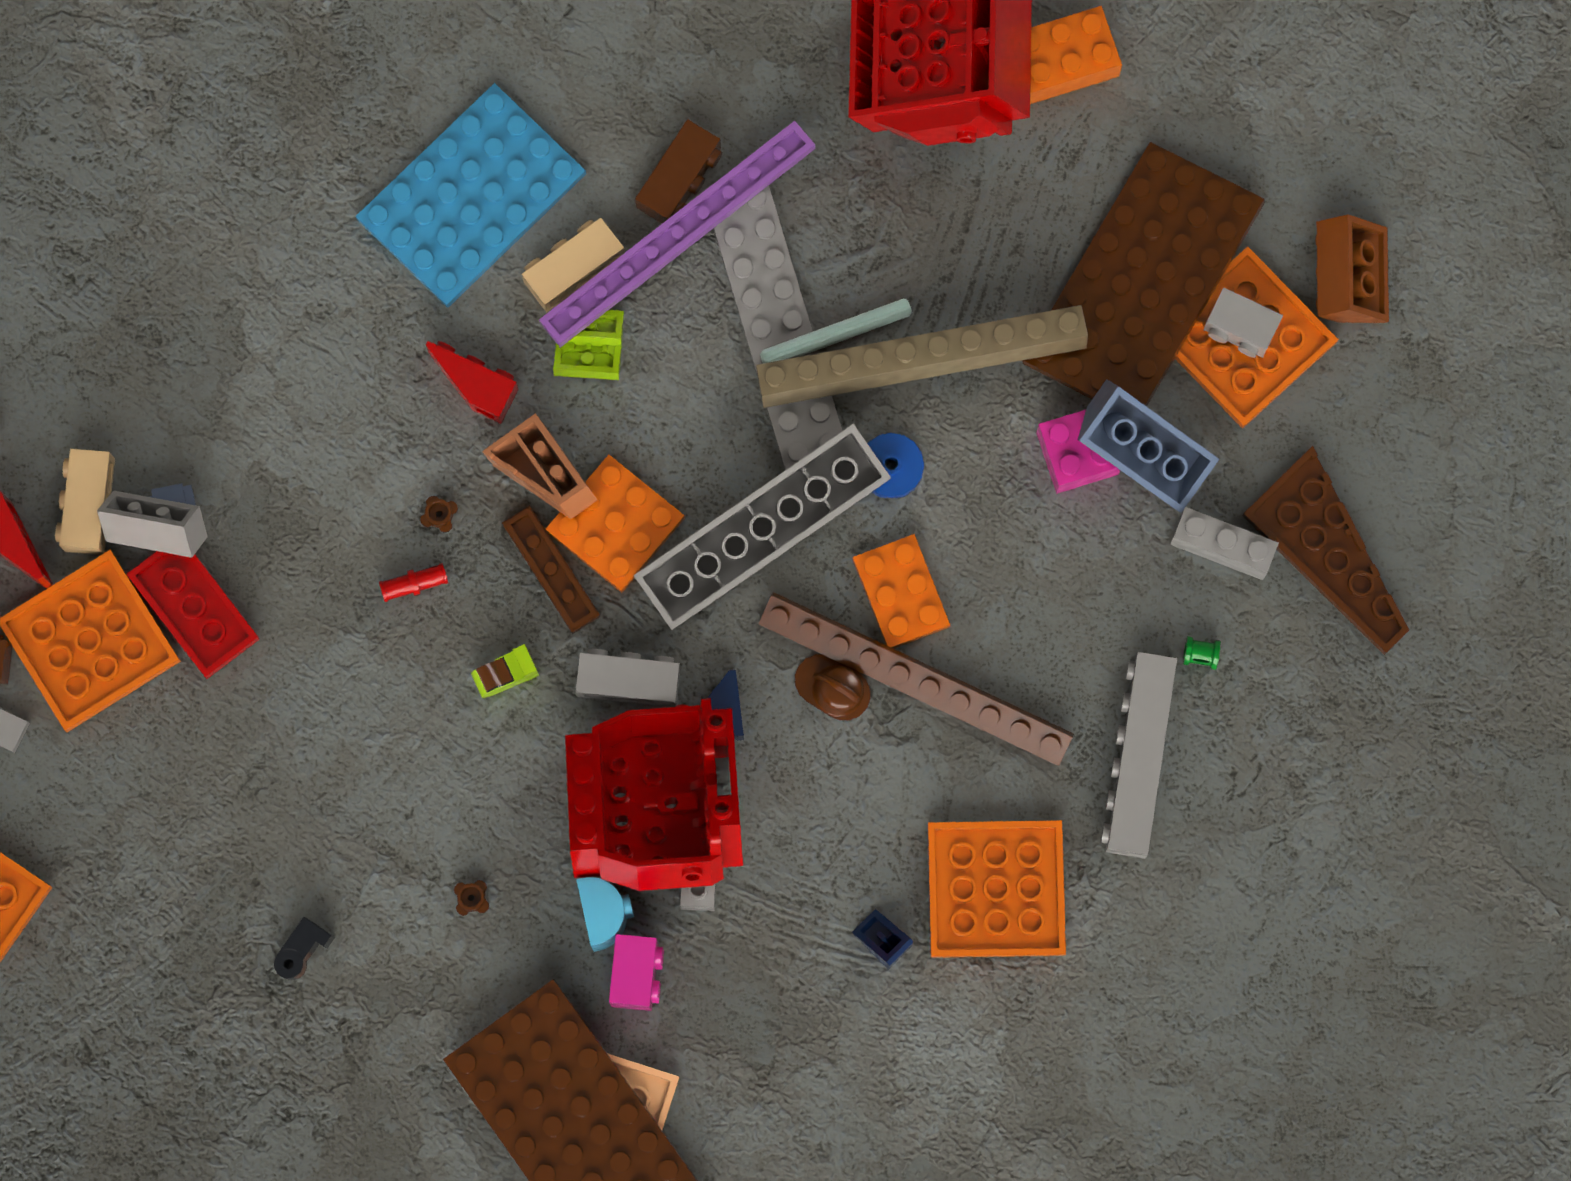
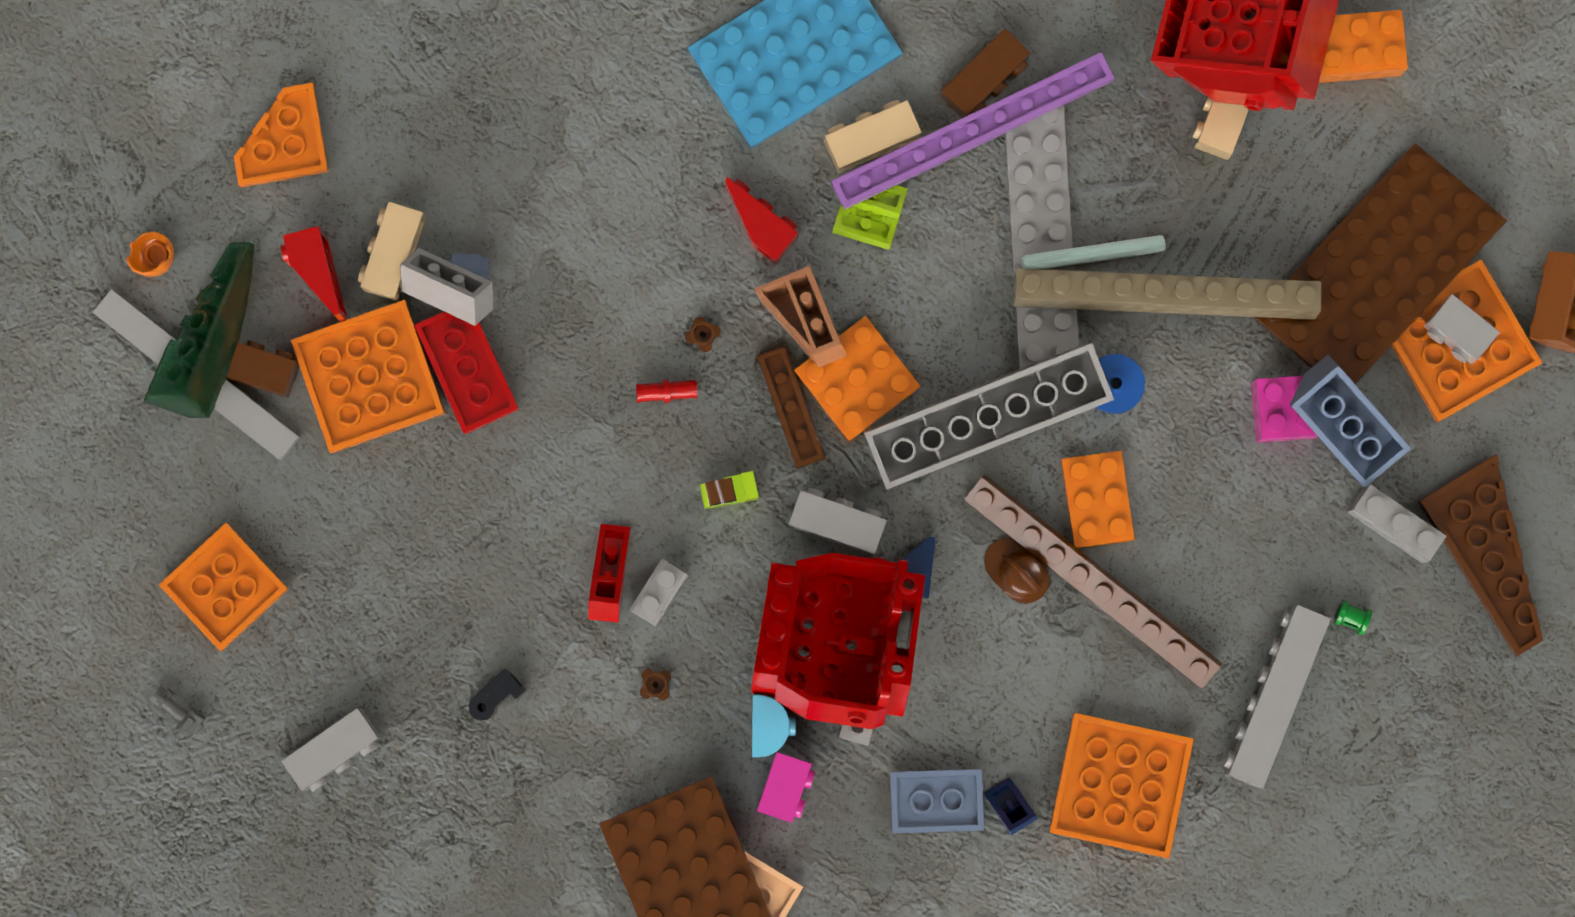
camera: 10 degrees right, 5 degrees up
(136, 1049) = (332, 751): none -> light grey brick
(394, 790) = (609, 573): none -> red slope
(453, 798) = (658, 593): none -> light grey brick
(802, 951) = (937, 801): none -> sand blue plate
(940, 172) = (1220, 128): none -> tan brick

